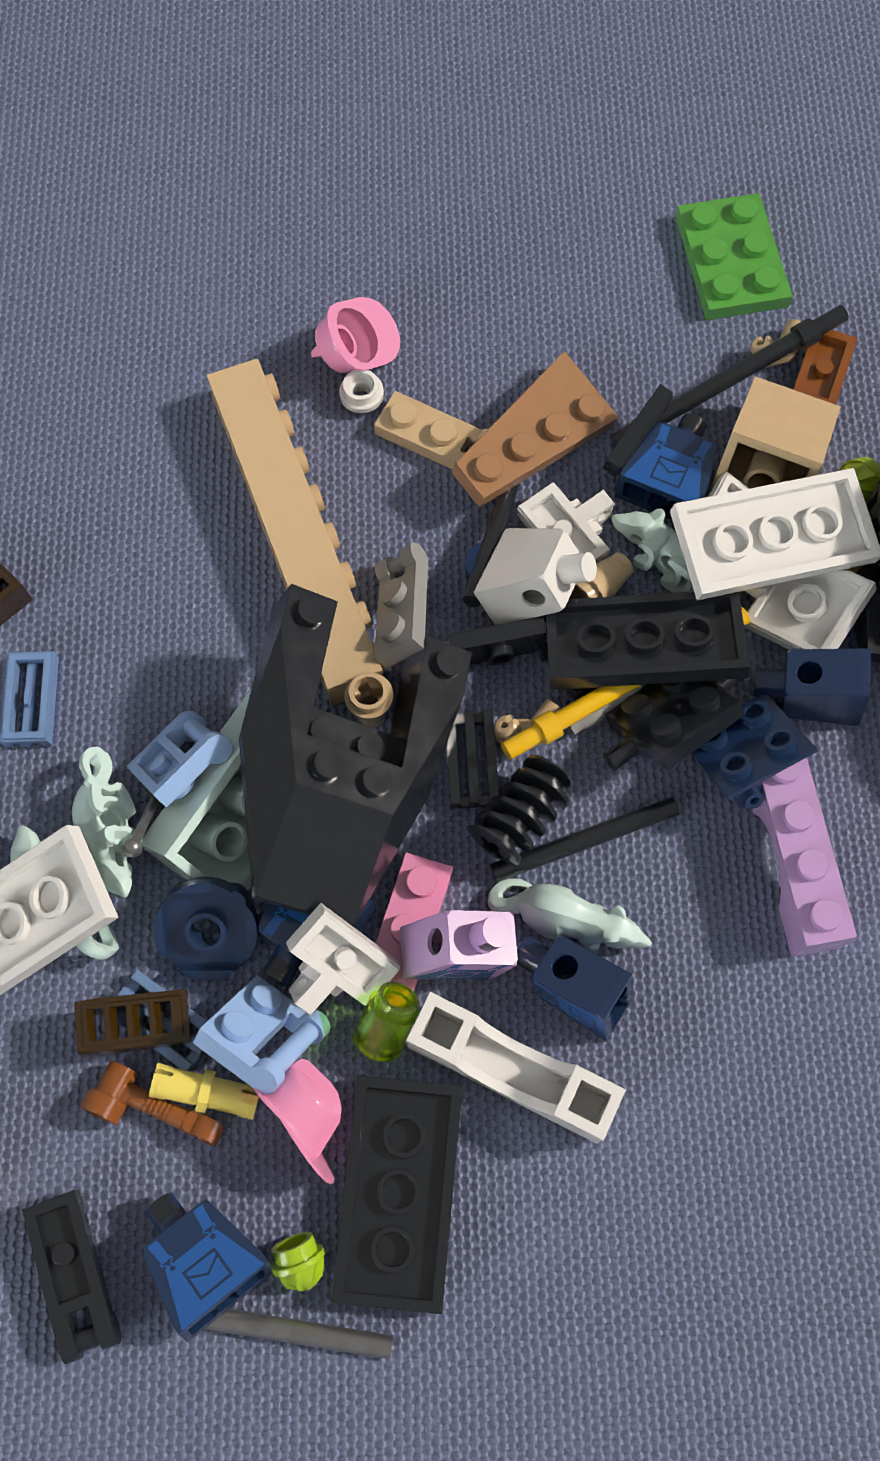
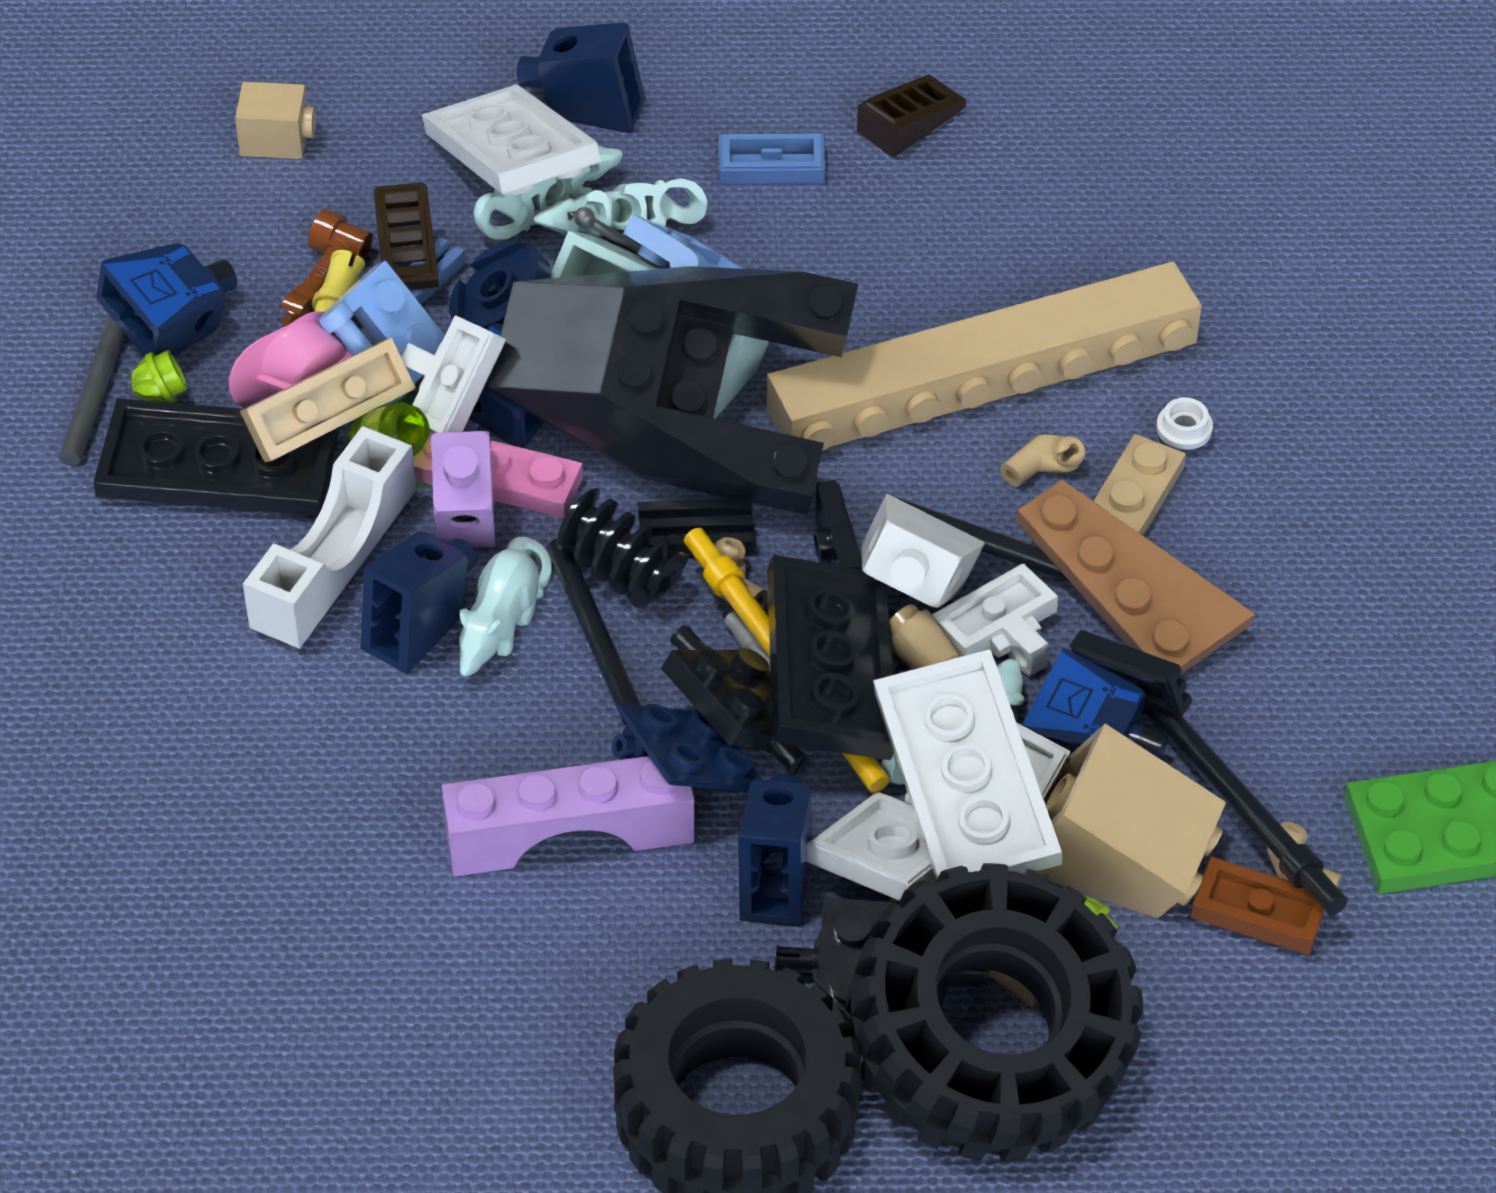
camera: 90 degrees right, 20 degrees down
(70, 1275) = (169, 216): black plate -> none
(356, 336) = (1254, 407): bright pink piece -> none
(358, 1080) = (327, 400): none -> tan plate
(369, 698) = (757, 404): tan cone -> none
(391, 492) = (1043, 454): none -> tan arm
(401, 605) = (880, 441): light grey plate -> none

